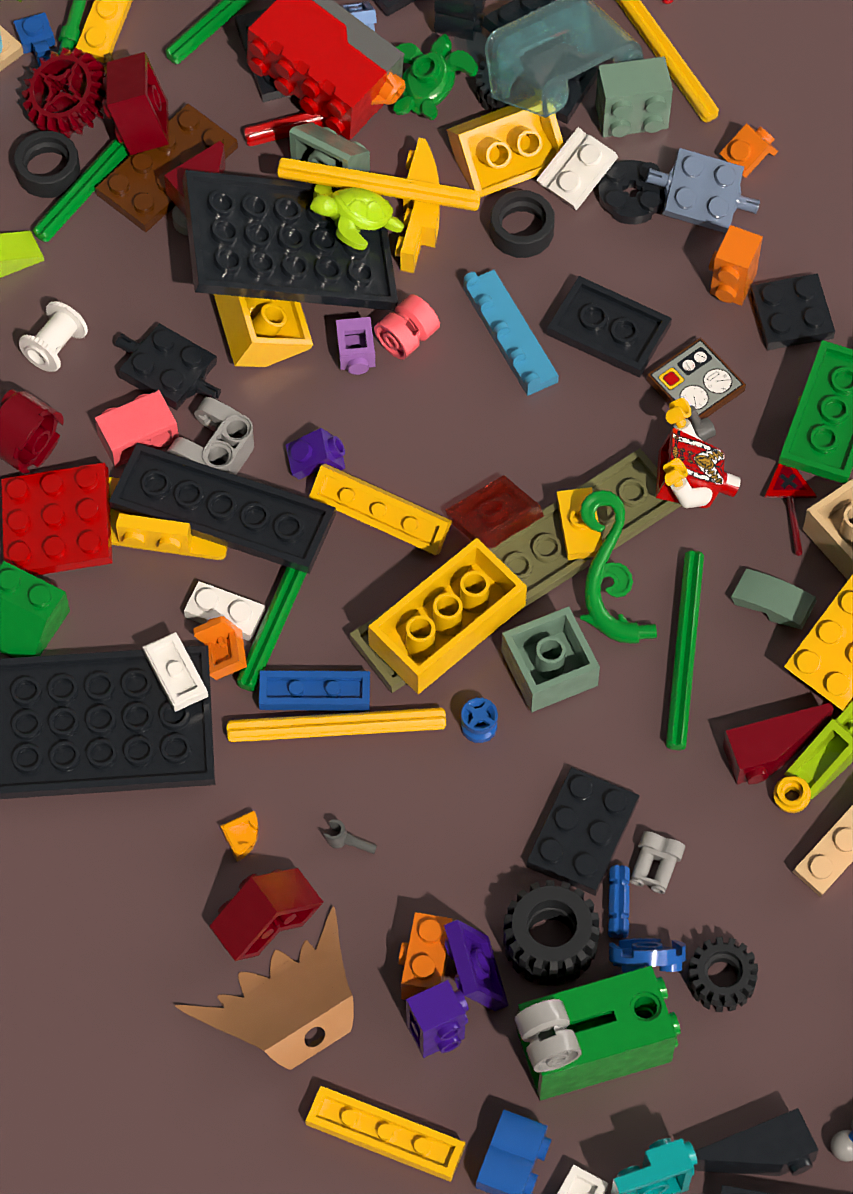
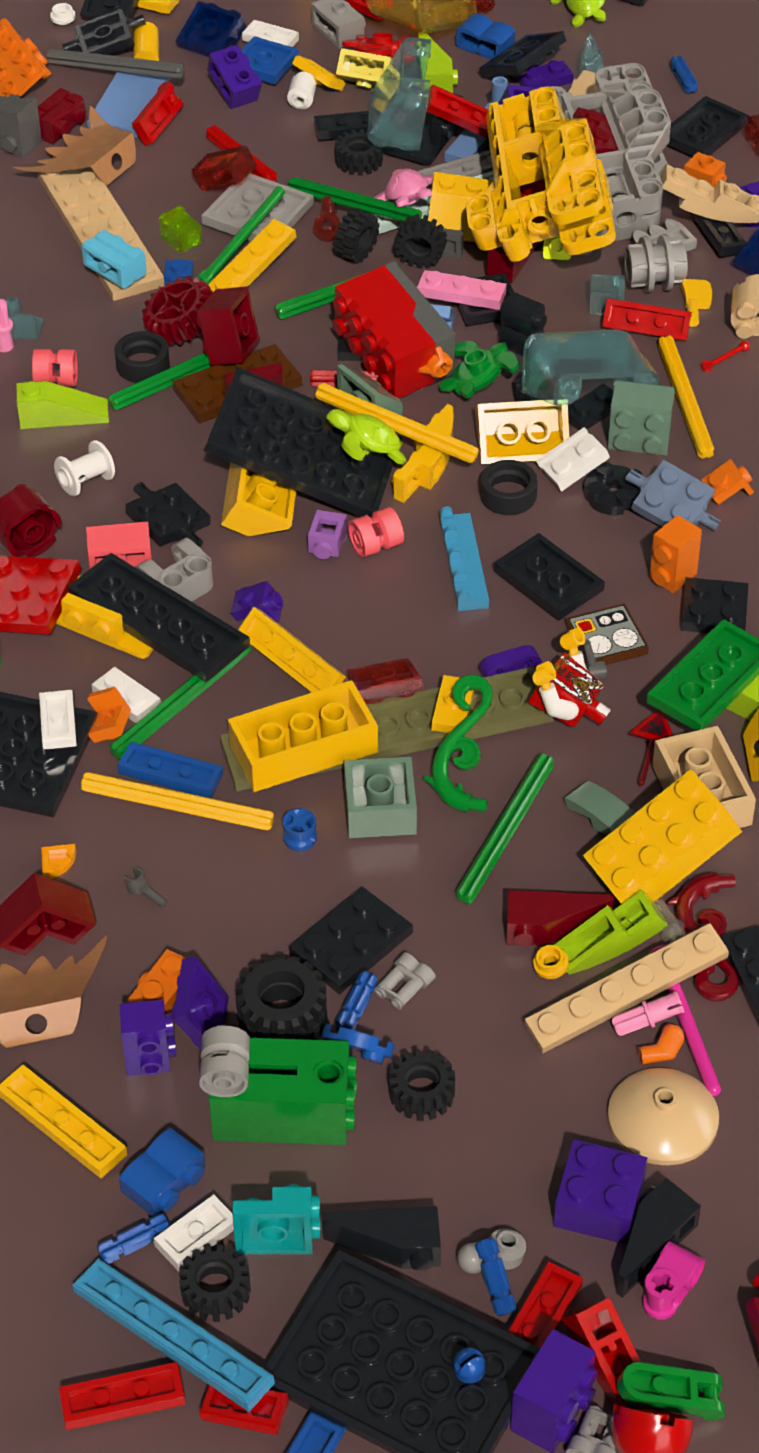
camera: 20 degrees right, 15 degrees down
(613, 450) = (510, 660): none -> dark purple beam

